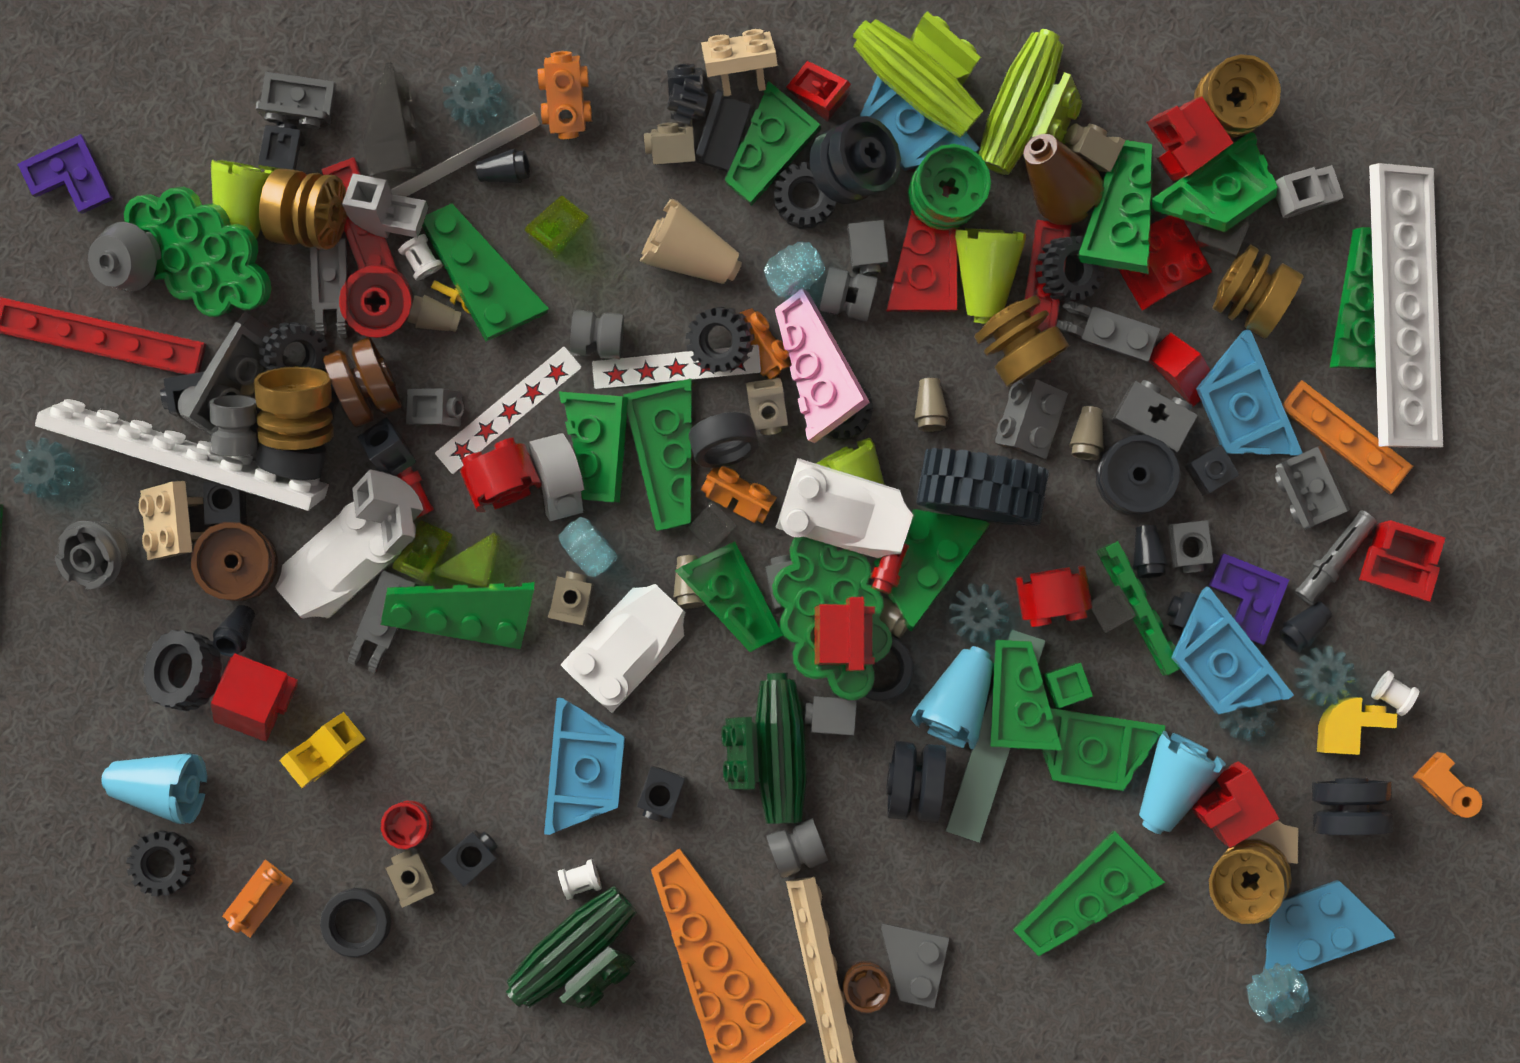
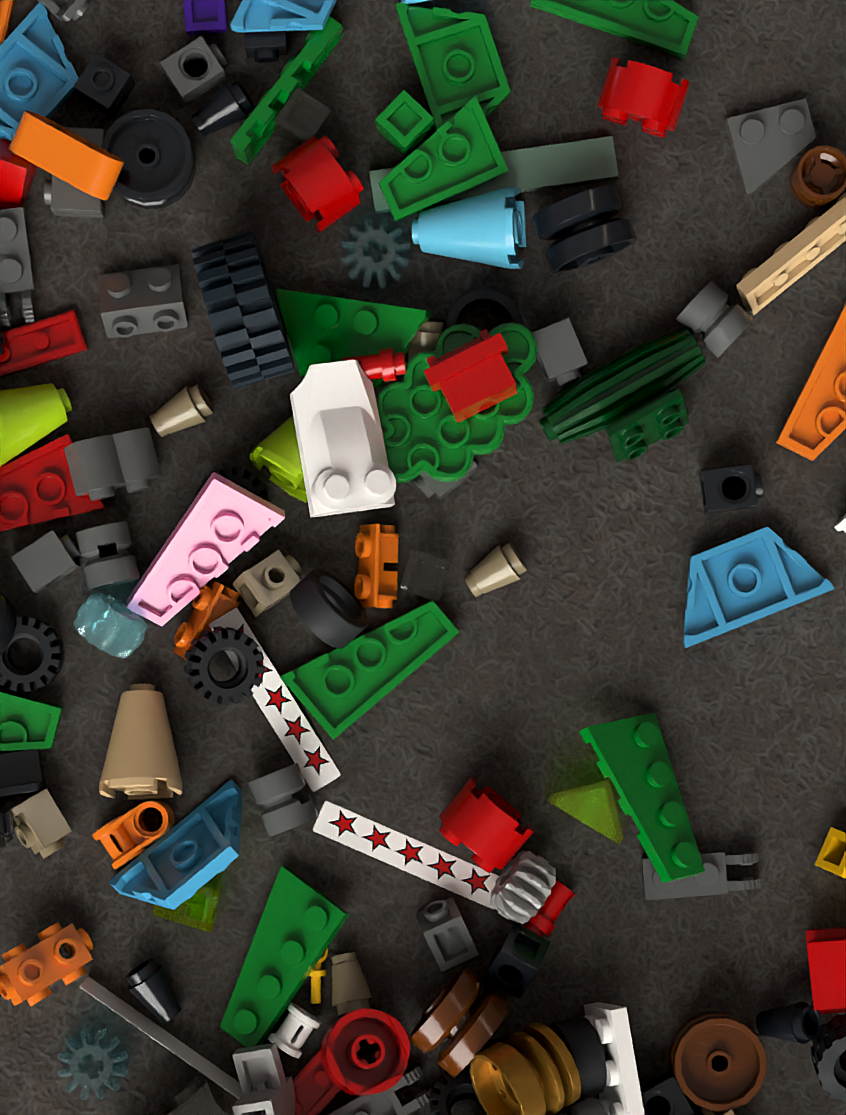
camera: 120 degrees left, 0 degrees up
(334, 565) = (659, 951): white slope -> none
(389, 502) = (572, 922): light grey brick -> none
(423, 553) = (605, 866): clear neon green slope -> none
(439, 481) = (523, 887): none -> light grey gear
(559, 476) = (452, 763): light grey brick -> none
(576, 612) = (592, 685): dark tan brick -> none
(587, 547) = (513, 694): clear light blue gear -> none
(593, 242) = (187, 853): none -> dark azure wing
(598, 440) = (394, 741): green wing -> none
(626, 645) = (594, 603): white slope -> none
(630, 206) = (128, 834): none -> orange piece
(732, 595) = (486, 518): green wing -> none
(917, 332) = (113, 462): none -> dark grey brick
(997, 879) = (643, 96): none -> red brick
(1021, 340) = (67, 347): pearl gold wheel -> none
(1088, 434) = (131, 232): dark tan cone -> none
(1169, 411) = (66, 155): none -> orange beam

